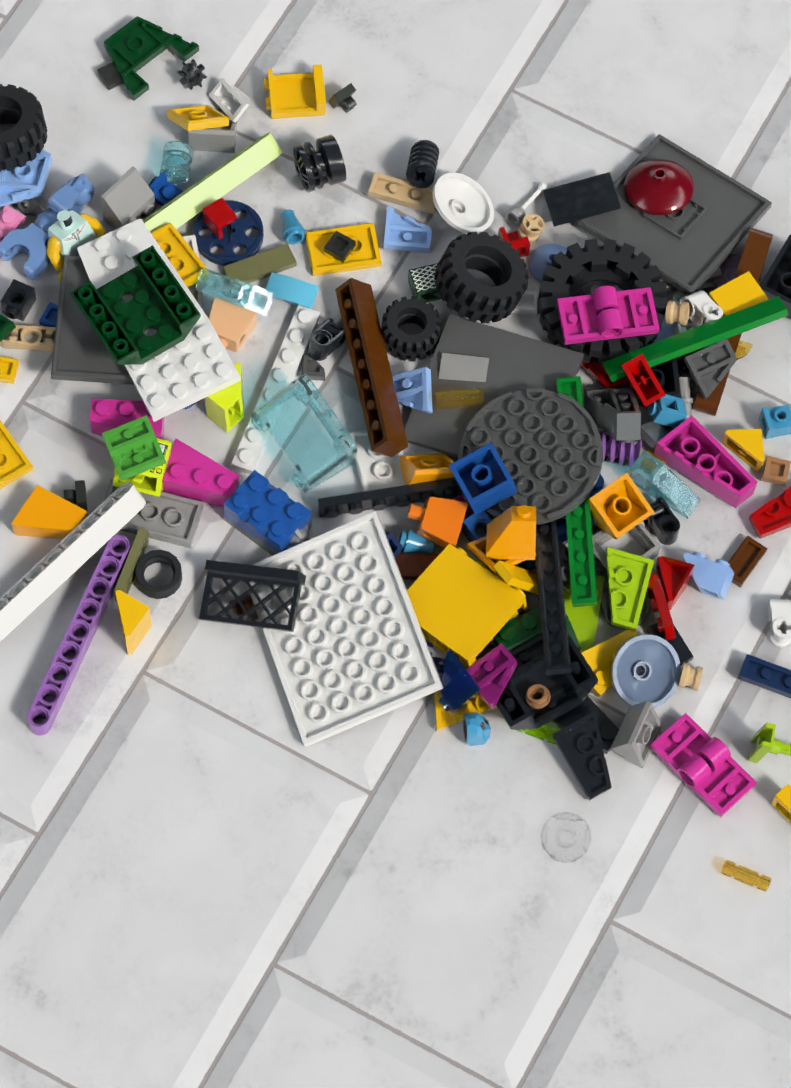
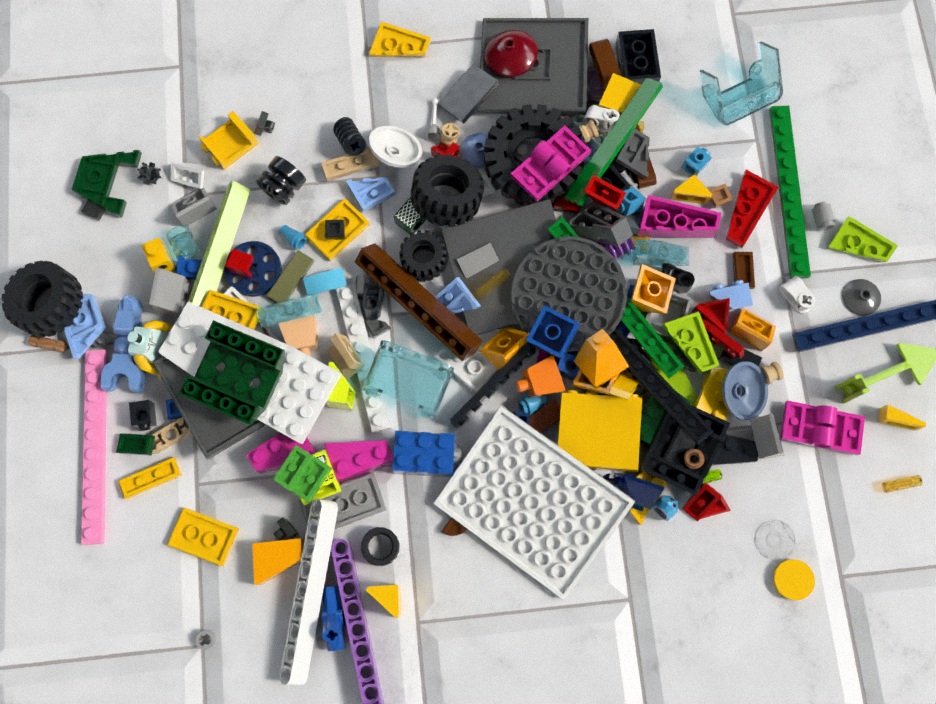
camera: 30 degrees left, 10 degrees up
(62, 609) = (333, 619): none -> blue piece
(137, 551) = (357, 554): olive tile -> none
(144, 156) = (158, 254): none -> yellow torso
(197, 117) = (175, 202): yellow tile -> none
(259, 373) = (345, 355): none -> tan panel
(260, 576) = (452, 503): black fence -> none
(326, 312) = (360, 281): none -> dark grey tile
(493, 674) = (656, 466): magenta wing -> none
(520, 753) = (706, 503): none -> red slope
(548, 102) = (396, 41): none -> yellow wing
(555, 887) = (793, 579): none -> yellow tile
(584, 754) = (744, 473): black wing -> none
(705, 622) = (753, 329): none -> light orange slope

